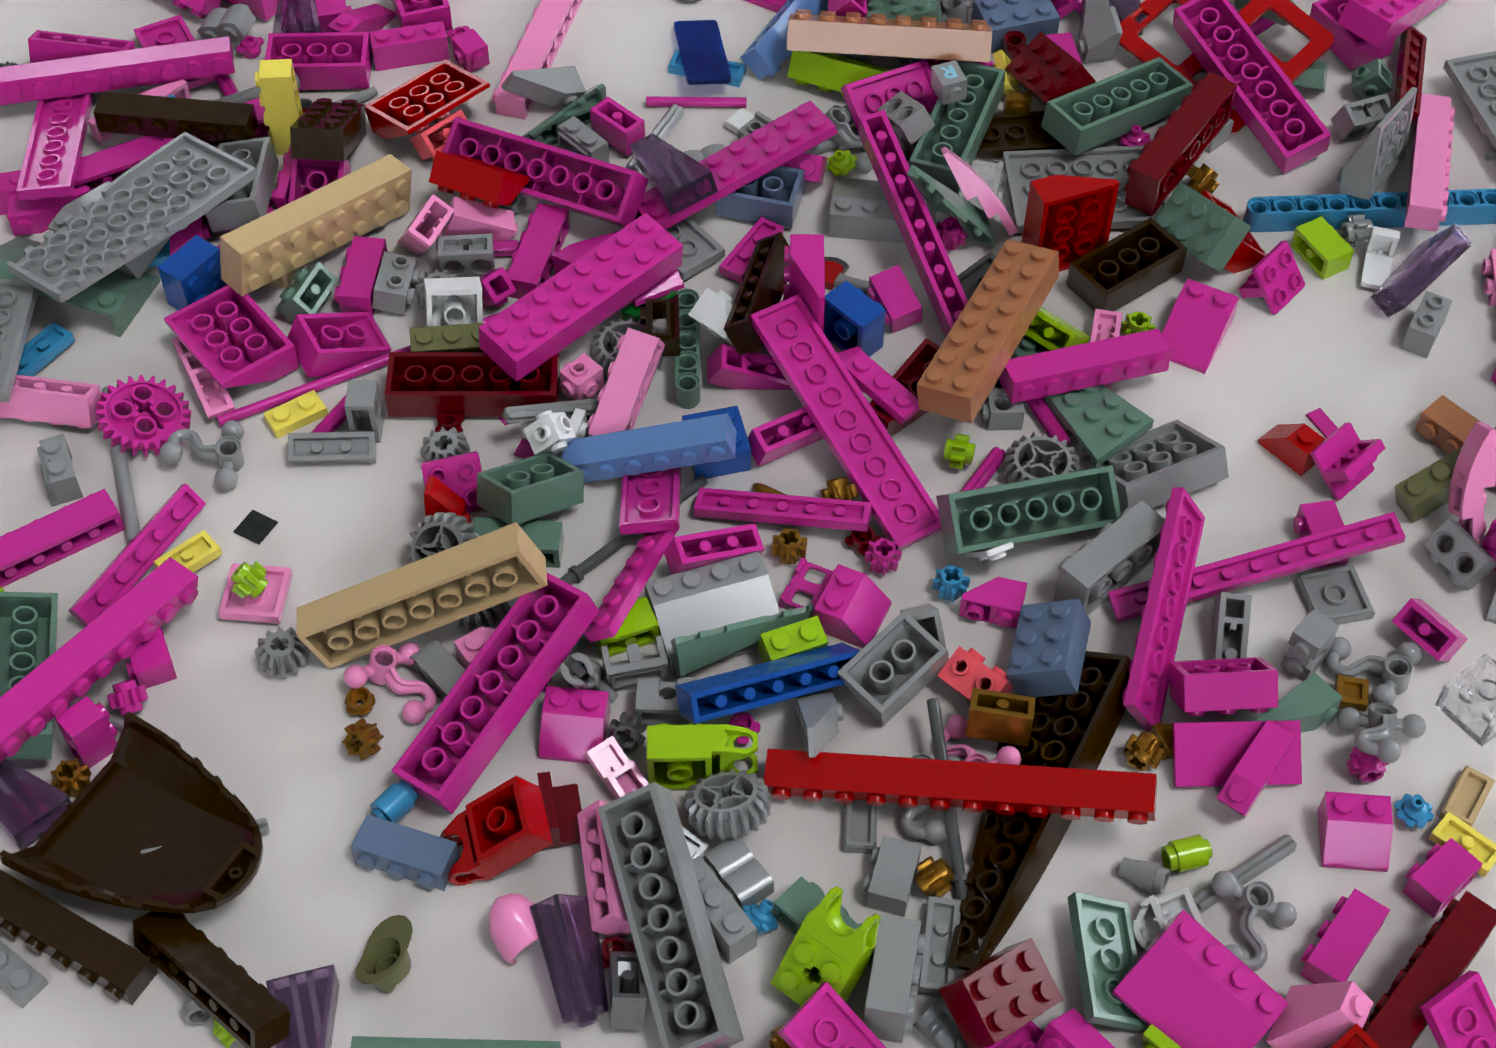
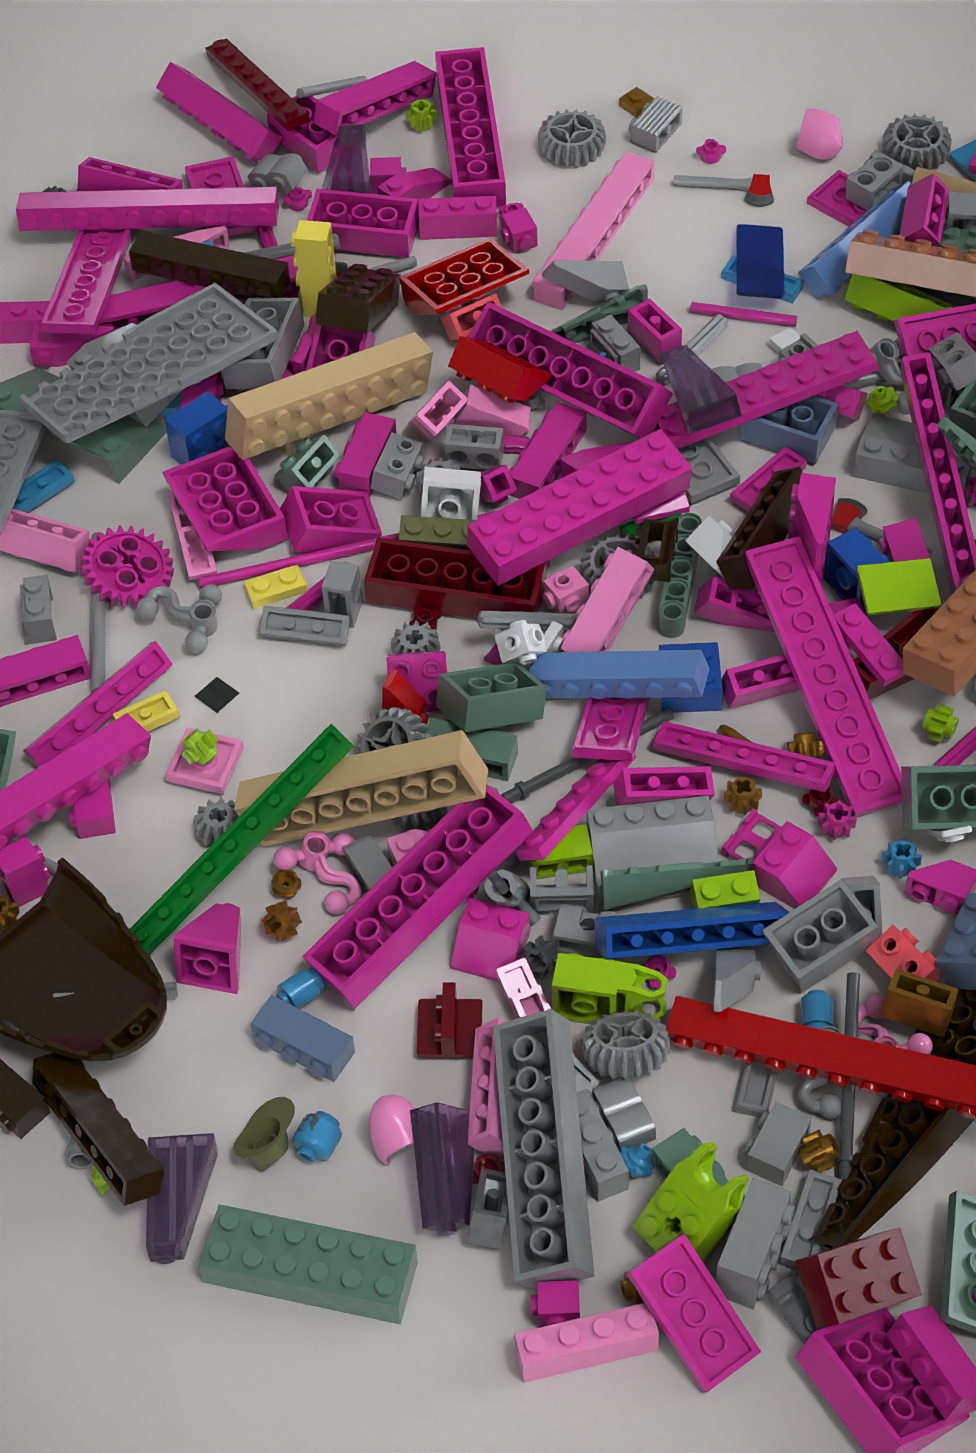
camera: 15 degrees right, 0 degrees up
(127, 696) = (65, 843): dark pink gear -> none
(295, 779) = (210, 950): none -> dark pink slope
(308, 664) = (241, 838): none -> green plate
(438, 949) = (317, 1136): none -> dark azure head
(498, 831) = (394, 1032): red brick -> none
(897, 329) = (898, 586): none -> lime piece
(902, 739) = (817, 1009): none -> dark azure brick

